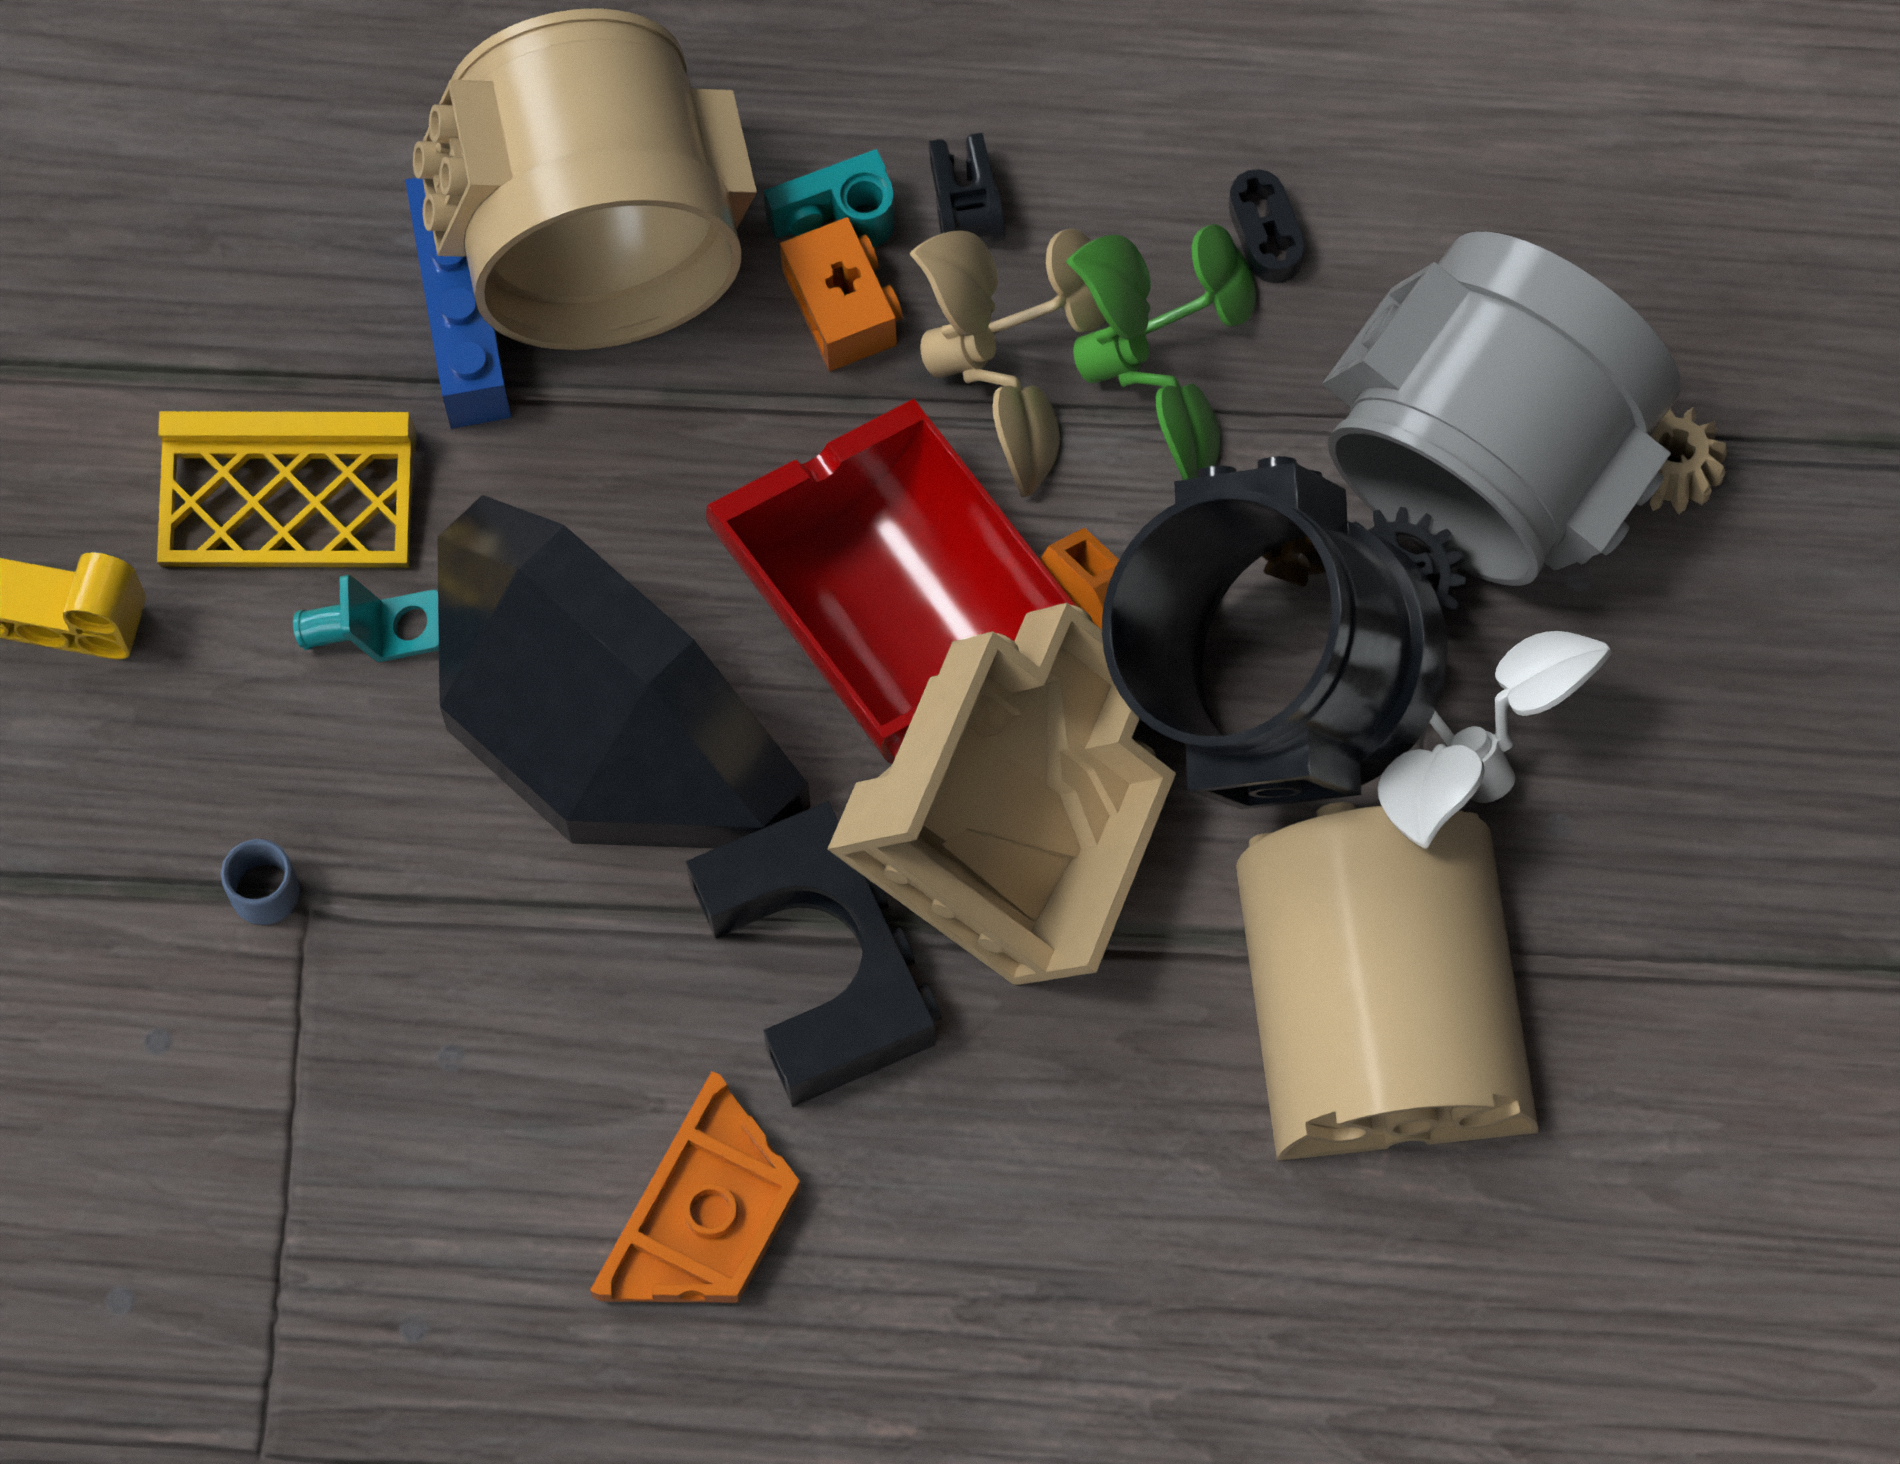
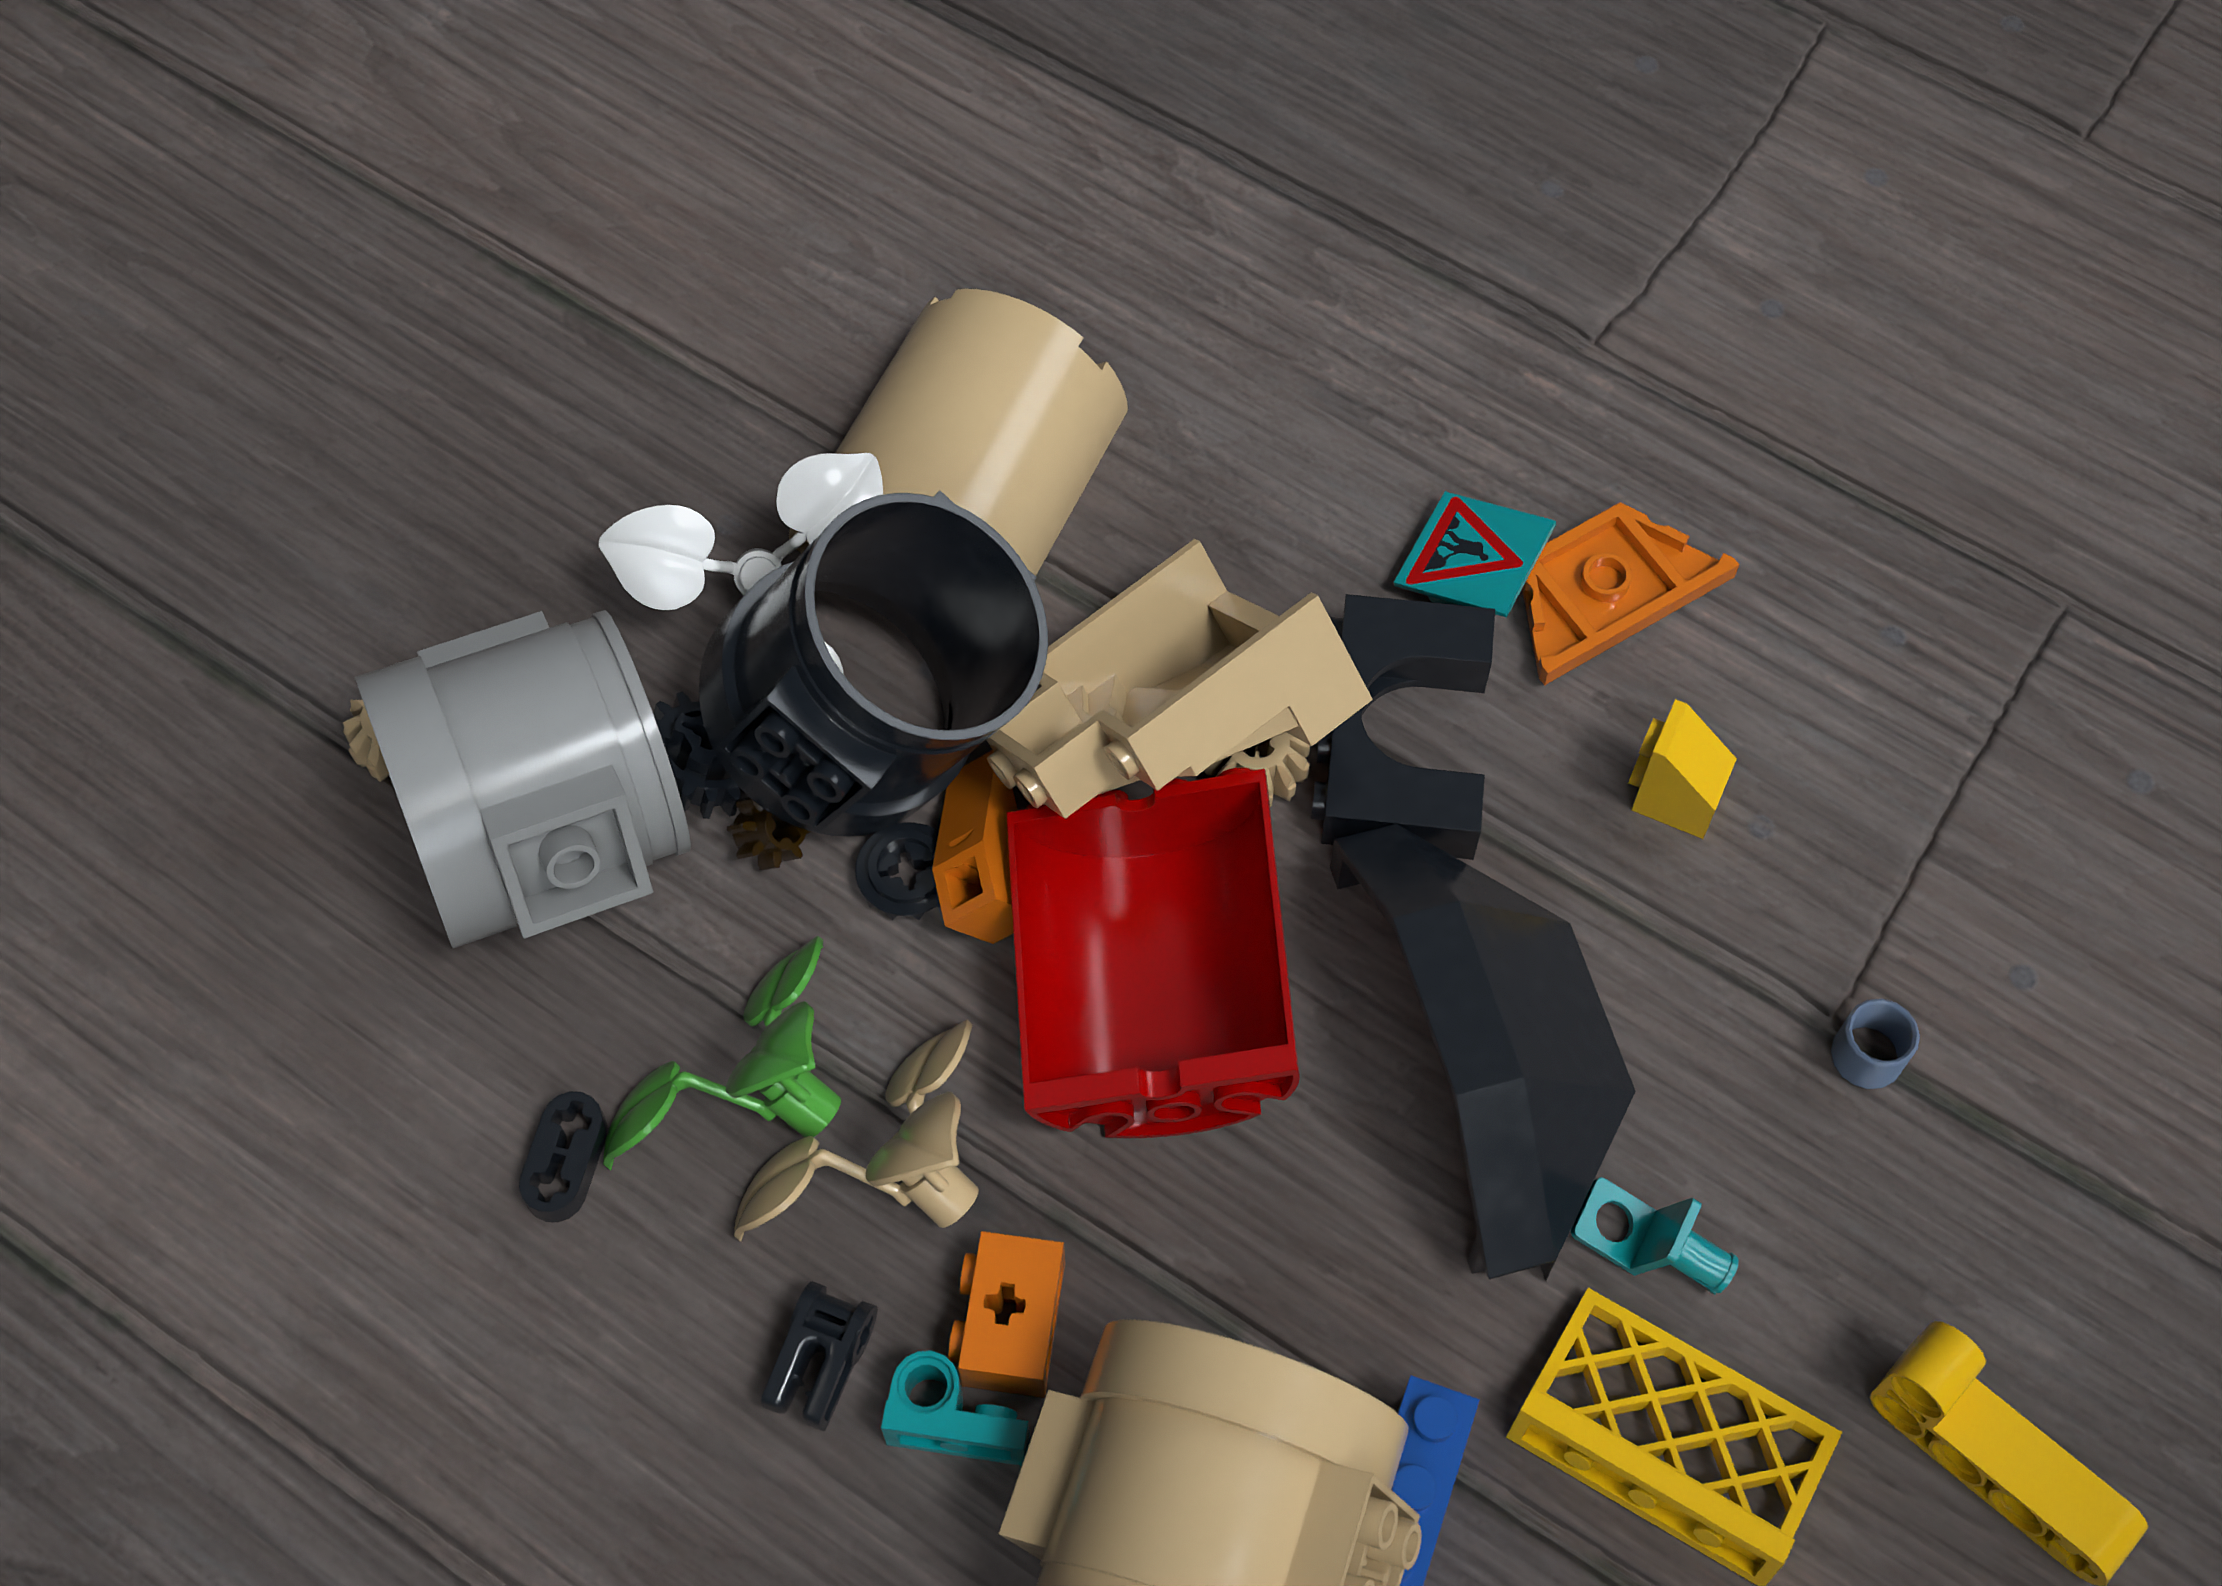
camera: 150 degrees left, 5 degrees down
(539, 1025) = (1681, 771): none -> yellow slope
(844, 1158) = (1475, 554): none -> teal piece

